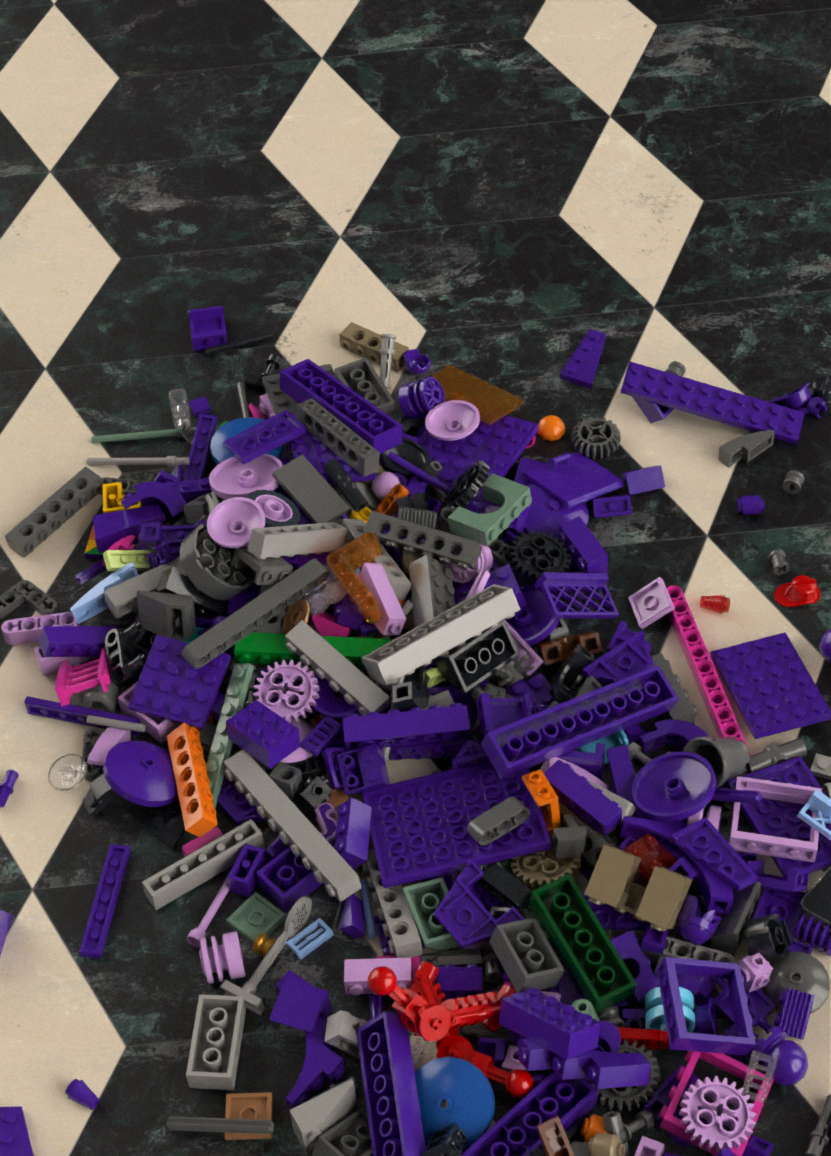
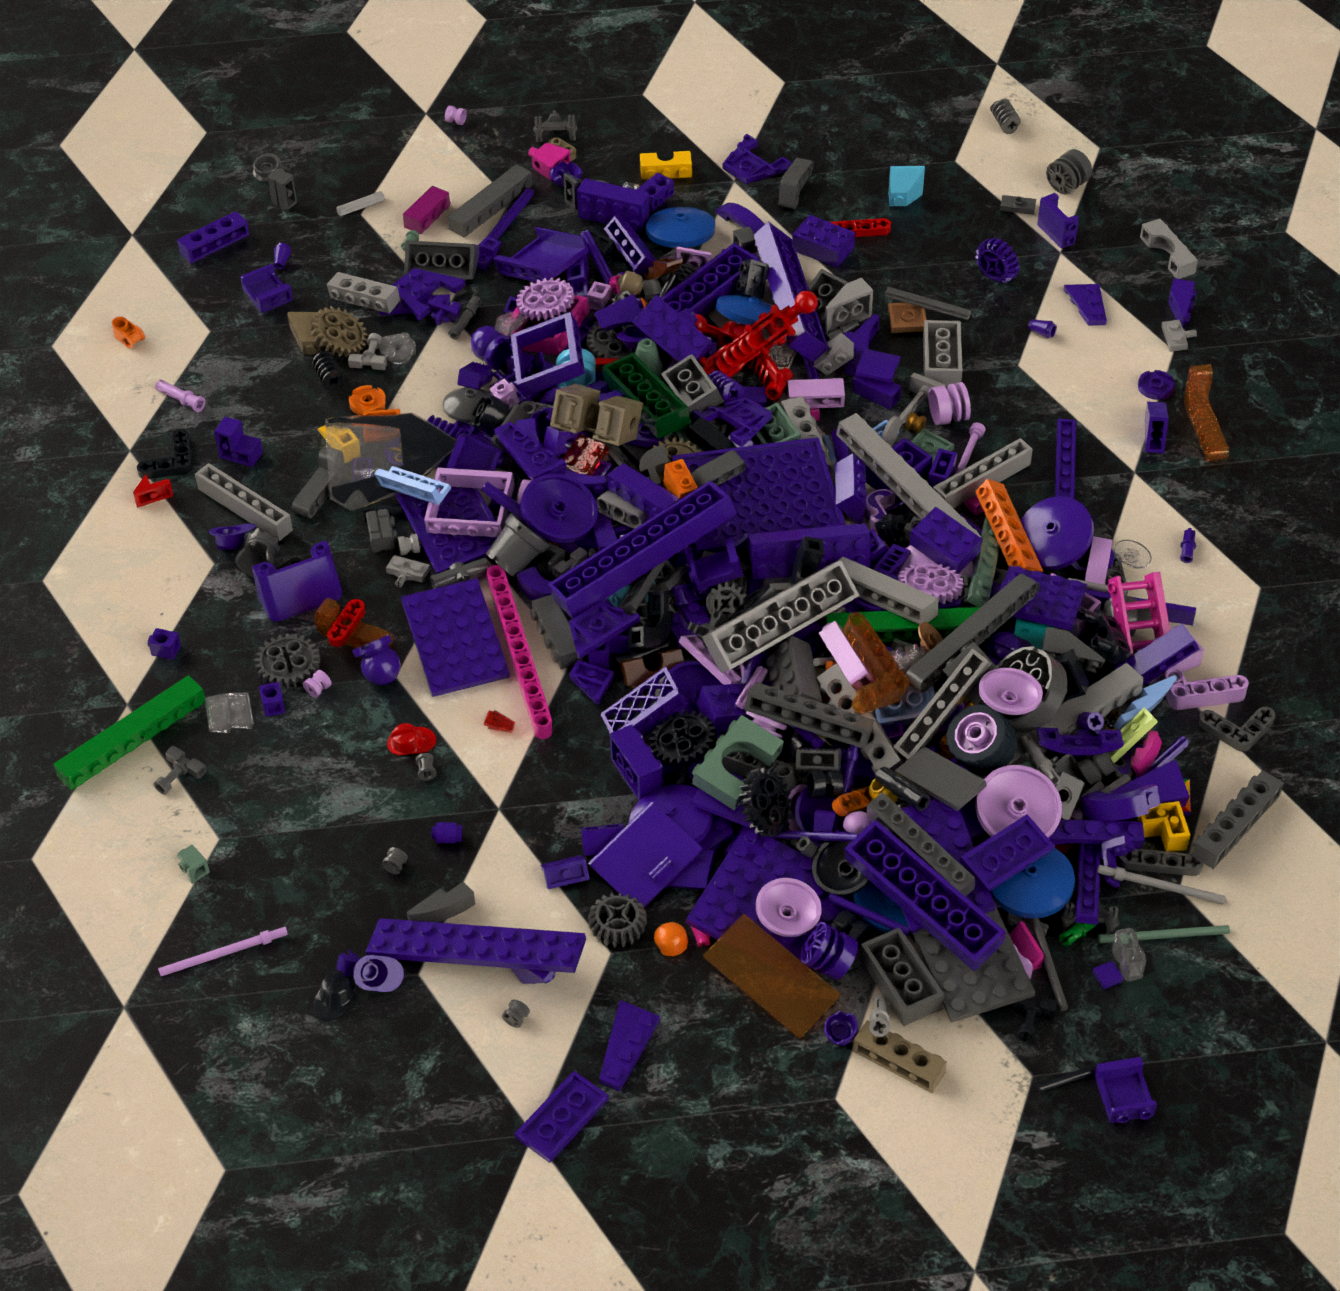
camera: 175 degrees right, 0 degrees up
(487, 968) = (727, 387): none -> dark purple piece
(633, 315) = (561, 1116): none -> dark purple tile
(651, 603) = (566, 715): lavender tile -> none

